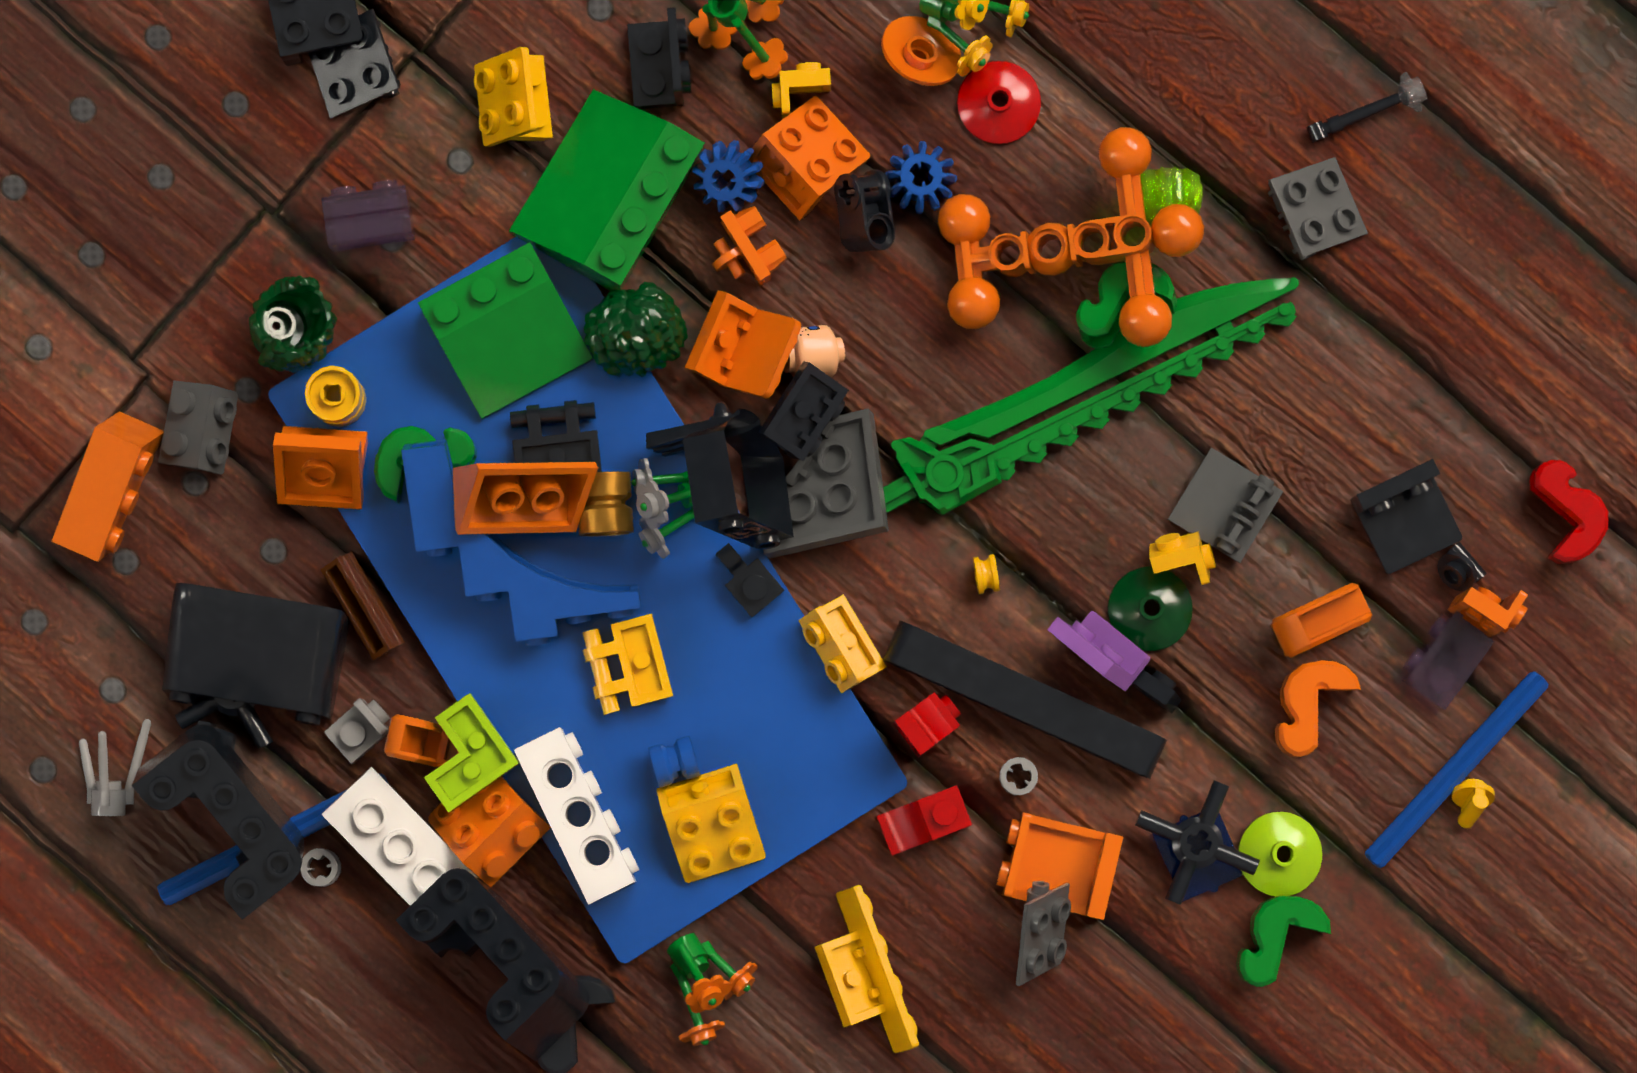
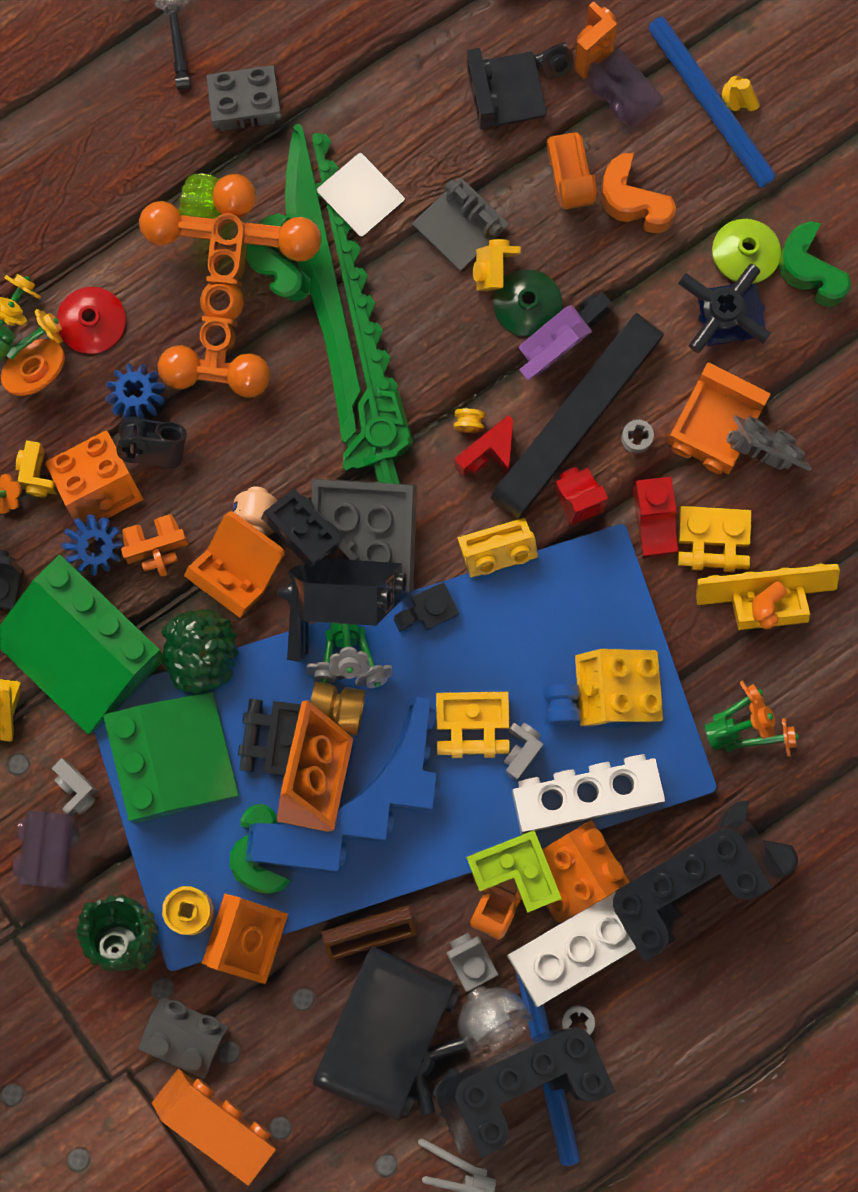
camera: 75 degrees left, 5 degrees down
(298, 767) = (491, 1019): none -> clear cylinder
(453, 226) = (72, 780): none -> light grey bracket
(600, 728) = (520, 757): none -> light grey bracket
(848, 968) = (764, 603): none -> orange arm
(931, 892) = (714, 527): none -> yellow plate
(967, 612) = (493, 443): none -> red slope
(1230, 378) = (360, 194): none -> white sticker

